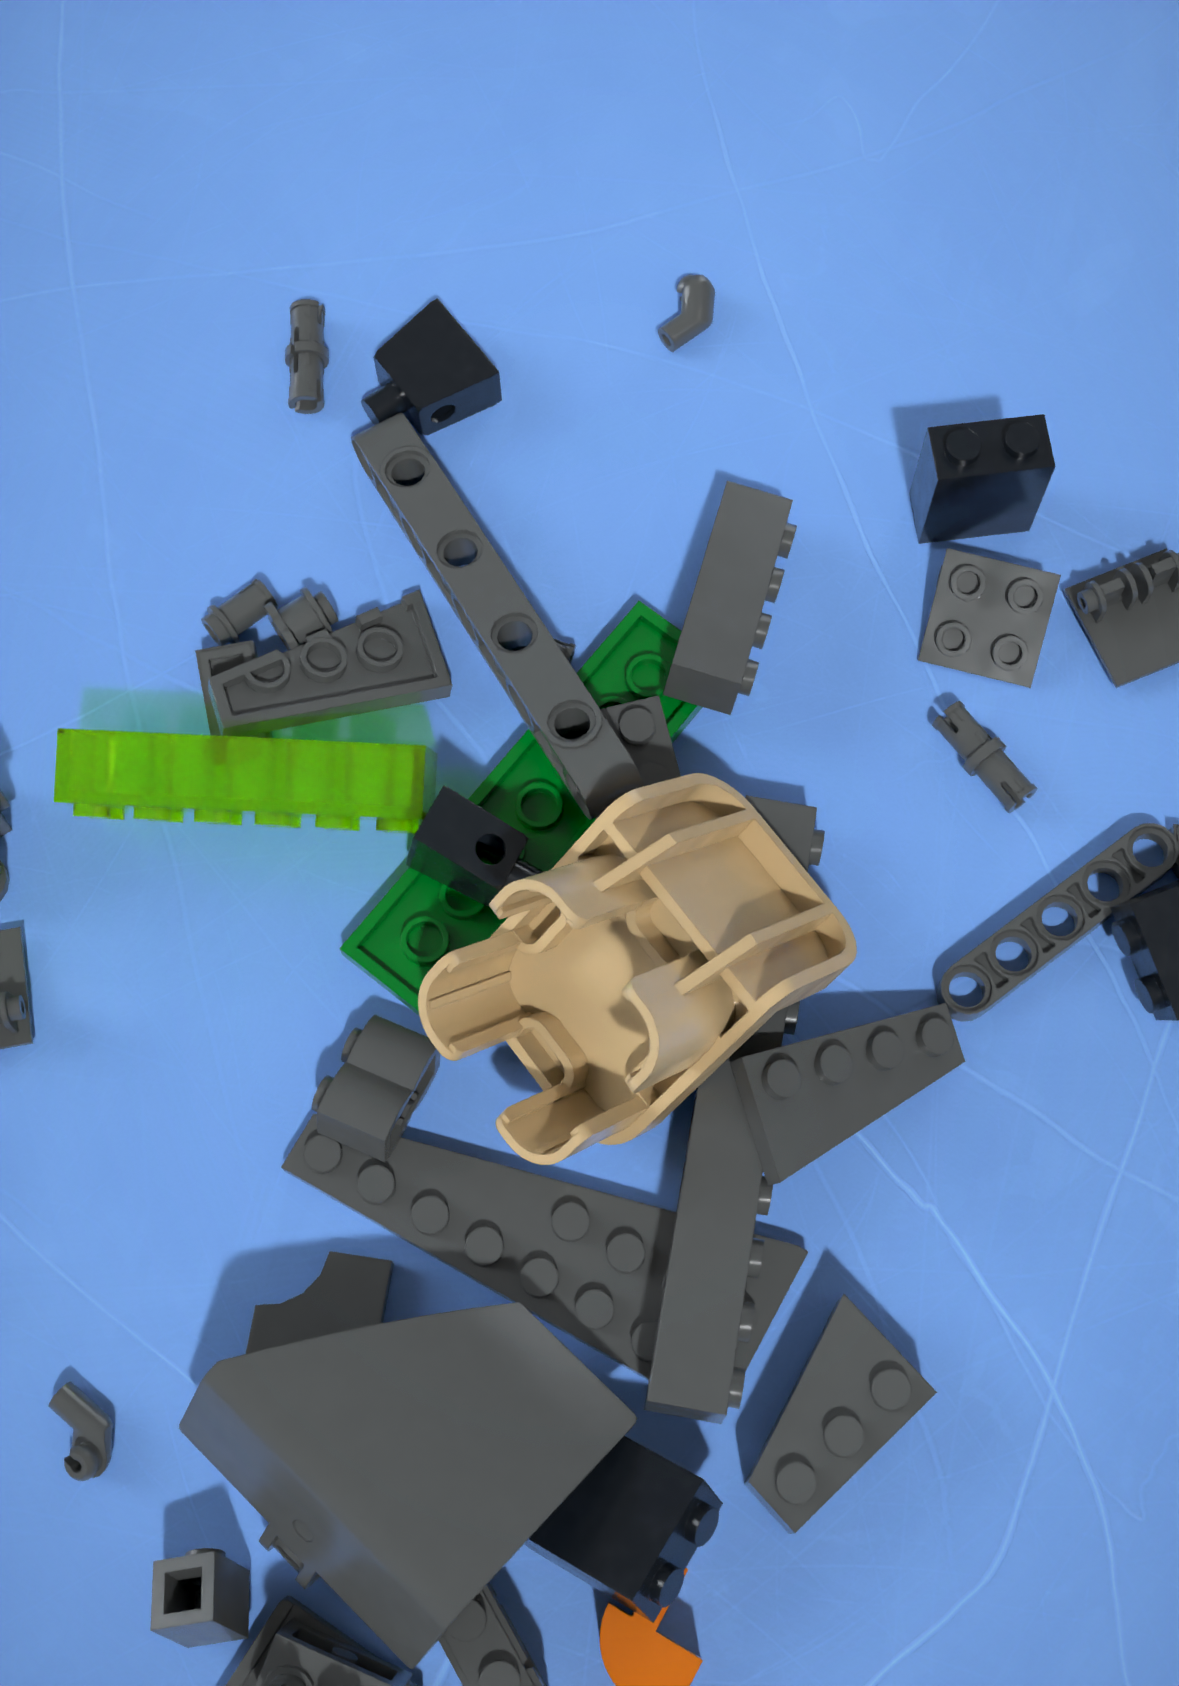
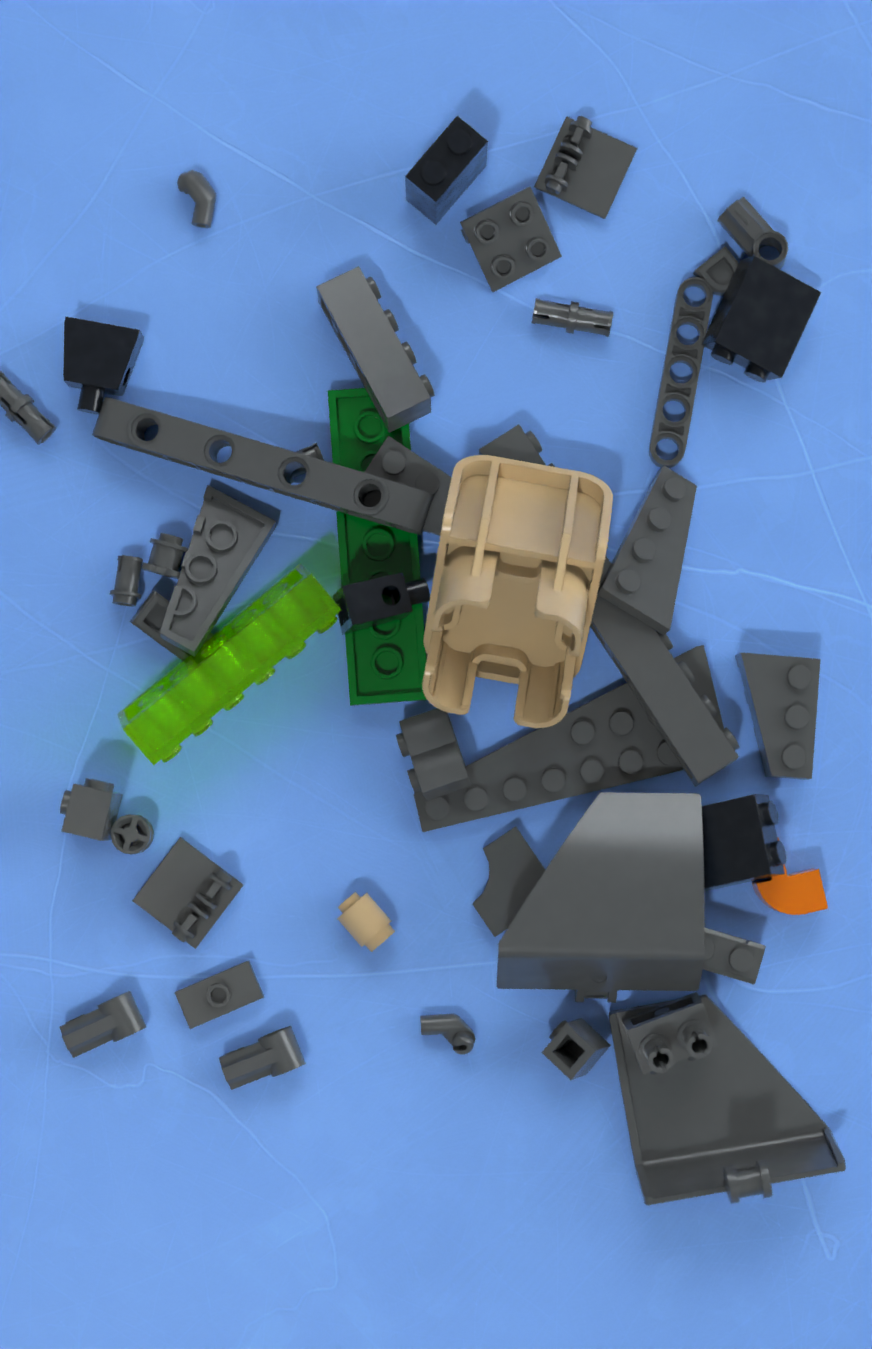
camera: 45 degrees left, 15 degrees up
(117, 1207) = (365, 921): none -> tan brick

